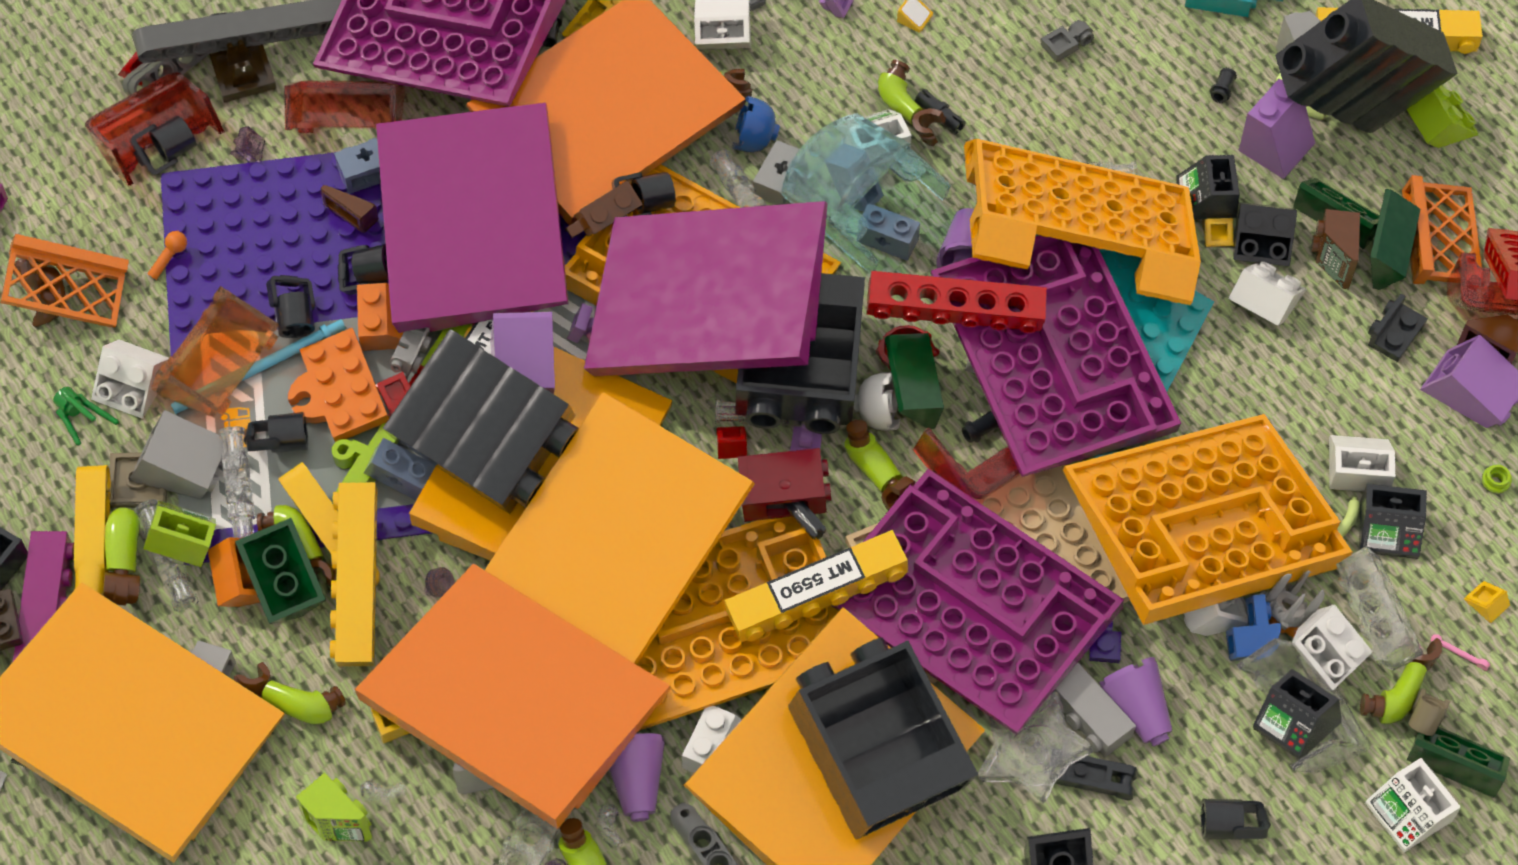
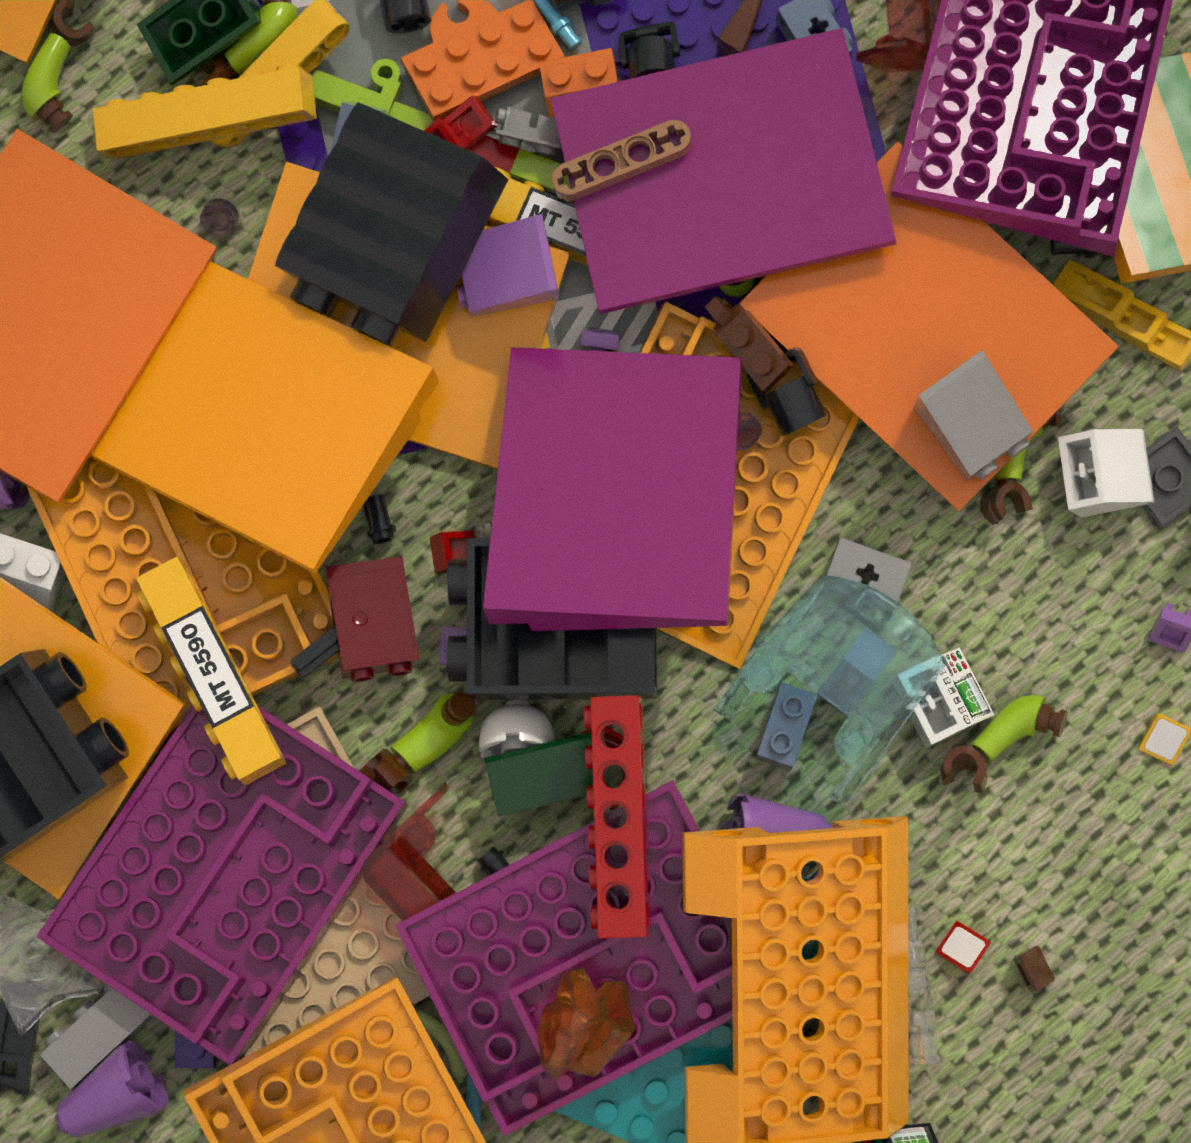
camera: 85 degrees right, 20 degrees up
(452, 273) = (624, 165): none -> medium nougat beam
(680, 72) = (974, 417): none -> light grey slope
(735, 180) = (819, 530): clear piece -> none
(755, 126) = (936, 533): blue cylinder -> none
(952, 121) = (1000, 785): black pin -> none
(1055, 141) = (963, 947): none -> white slope
(1063, 43) = (1138, 950): dark grey plate -> none
(1072, 106) = (1034, 968): none -> reddish brown slope
(1106, 340) = (584, 1025): none -> clear orange piece

